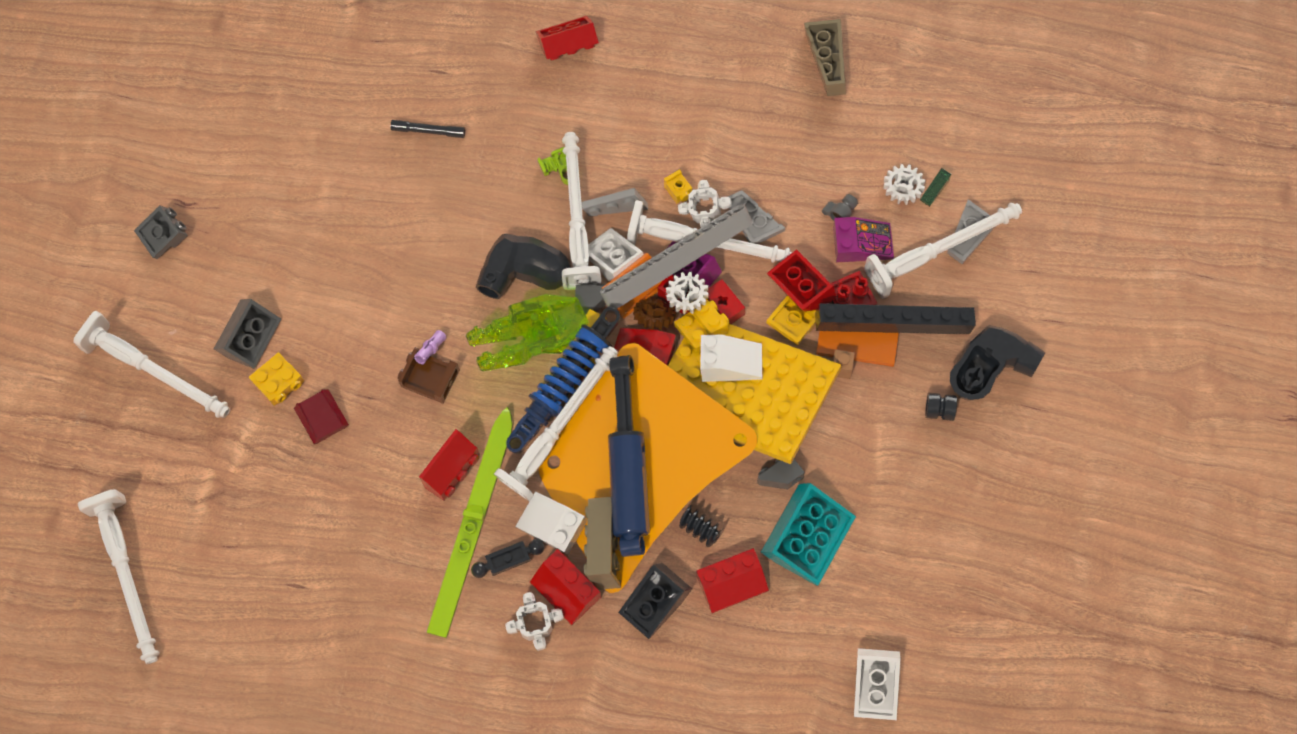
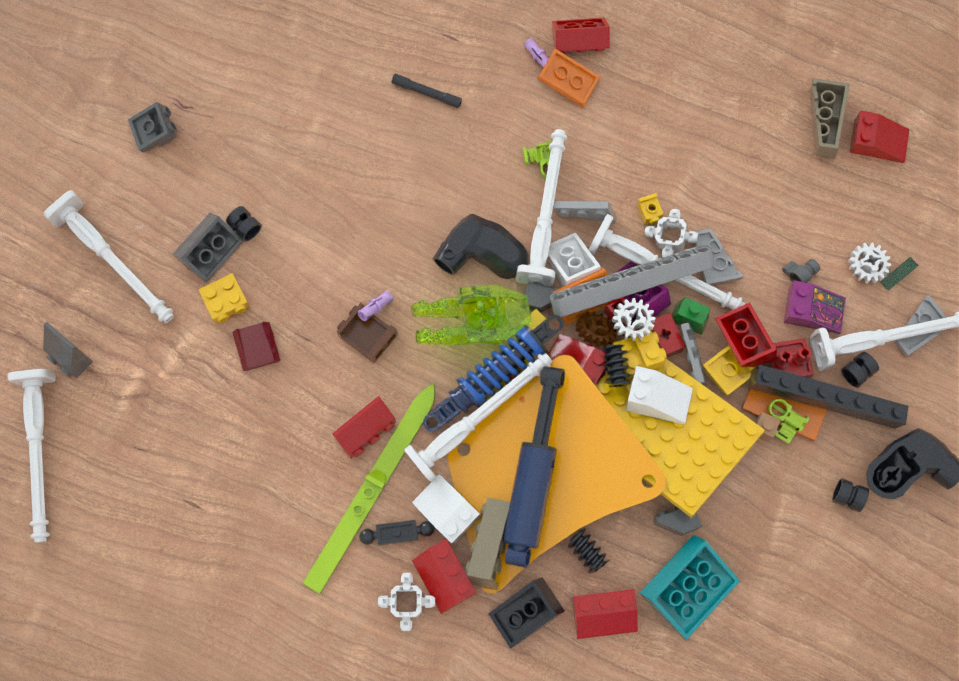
camera: 10 degrees right, 5 degrees up
(128, 469) = (64, 352): none -> dark grey slope
(277, 301) = (242, 222): none -> black wheel
(531, 67) = (537, 53): none -> lavender pin
(565, 81) = (568, 77): none -> orange tile
(680, 341) = (615, 365): none -> black piece
(744, 276) = (693, 313): none -> green torso
(755, 313) = (693, 353): none -> light grey wing
(865, 353) = (790, 423): none -> lime piece
(884, 63) = (879, 137): none -> red slope
(920, 286) = (862, 367): none -> black wheel

